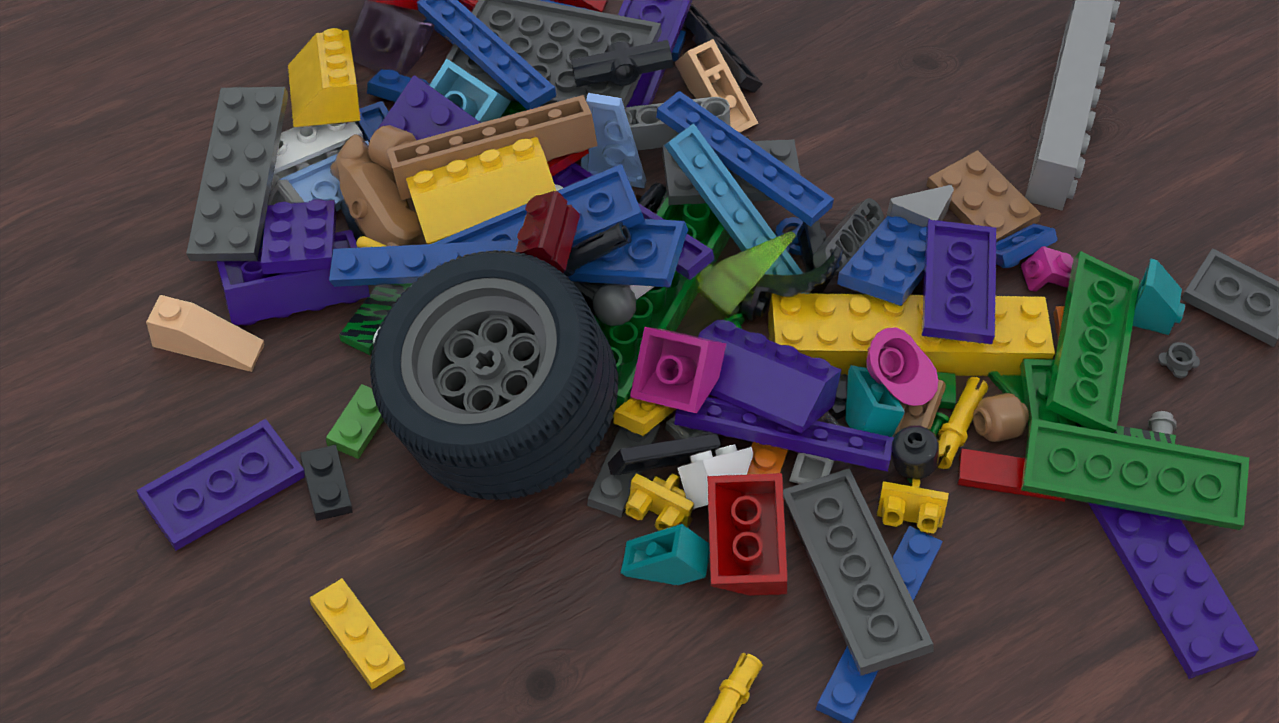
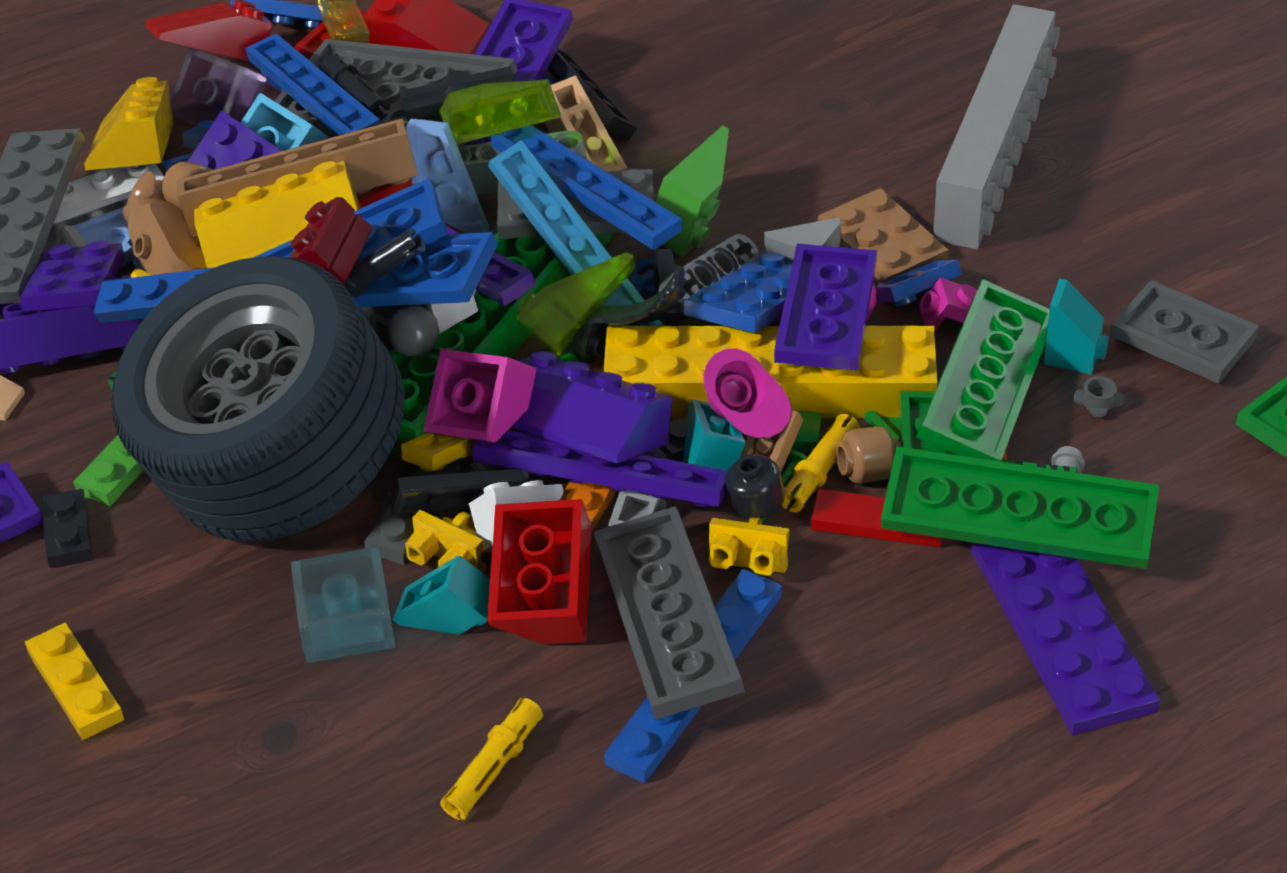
camera: 10 degrees right, 10 degrees down
(517, 40) = (349, 79): none -> black pin
(583, 564) = (342, 605): none -> clear light blue brick
(664, 84) = (498, 108): none -> clear neon green slope
(834, 153) = (693, 192): none -> bright green slope

